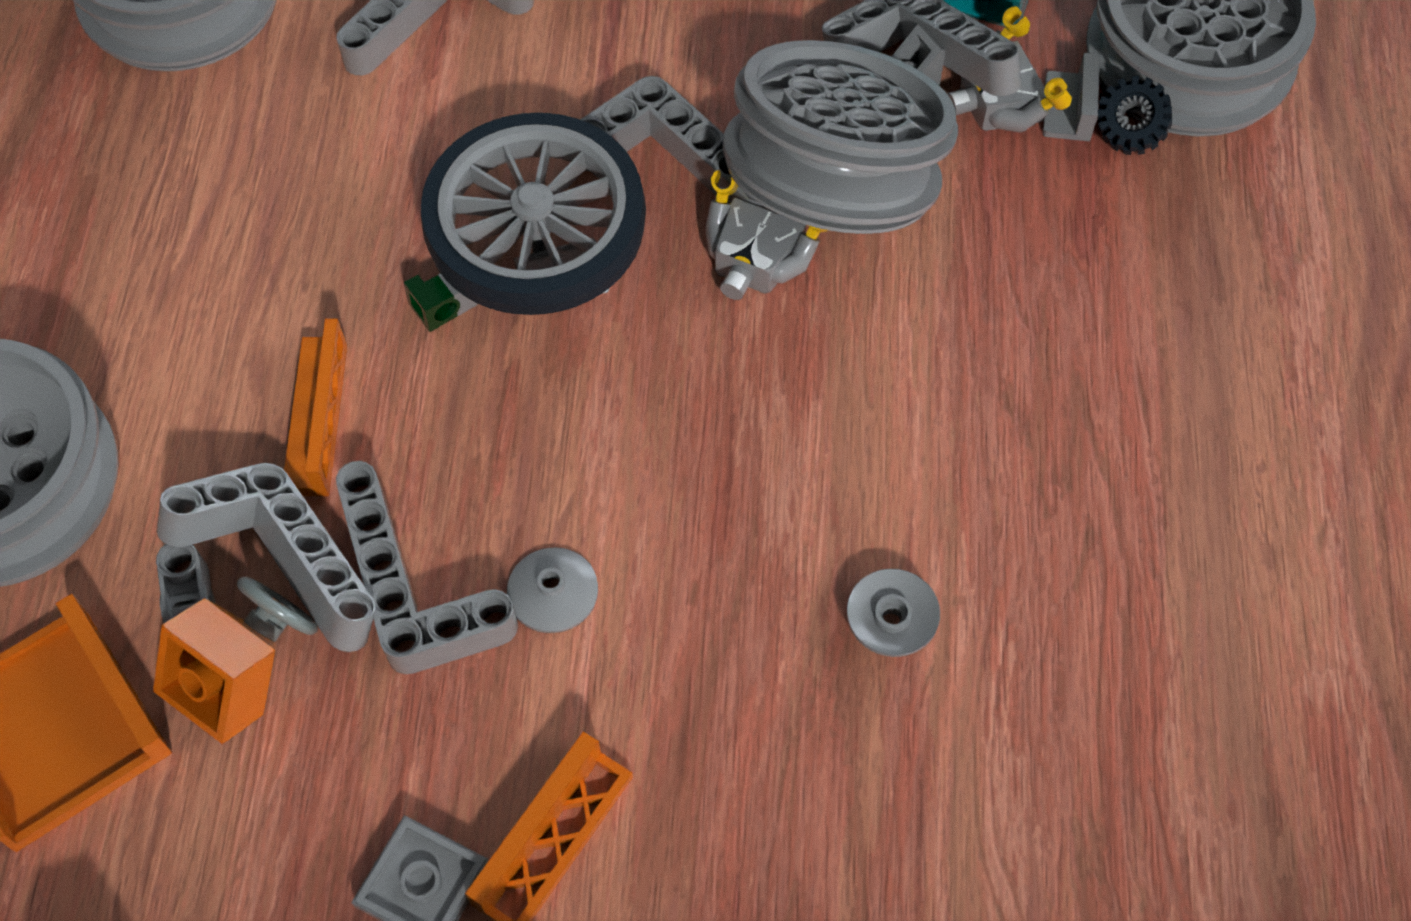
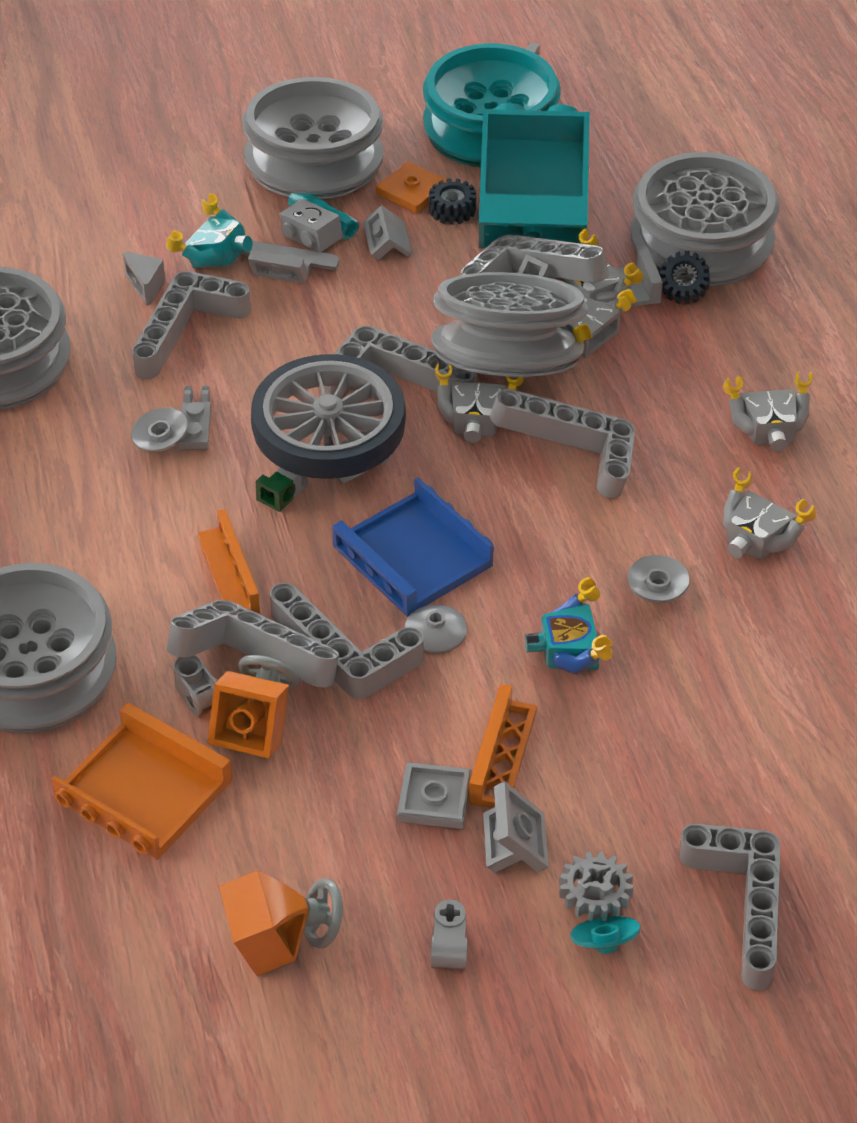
camera: 20 degrees left, 15 degrees down
(323, 162) = (159, 429): none -> light grey dish
(382, 156) = (198, 418): none -> light grey hinge
(577, 453) = (415, 549): none -> blue panel
(725, 671) = (570, 634): none -> torso
(869, 330) = (573, 427): none -> light grey beam
(982, 153) = (600, 321): none -> light grey torso
(1079, 564) = (759, 525): none -> light grey torso
(1171, 378) = (770, 415): none -> light grey torso

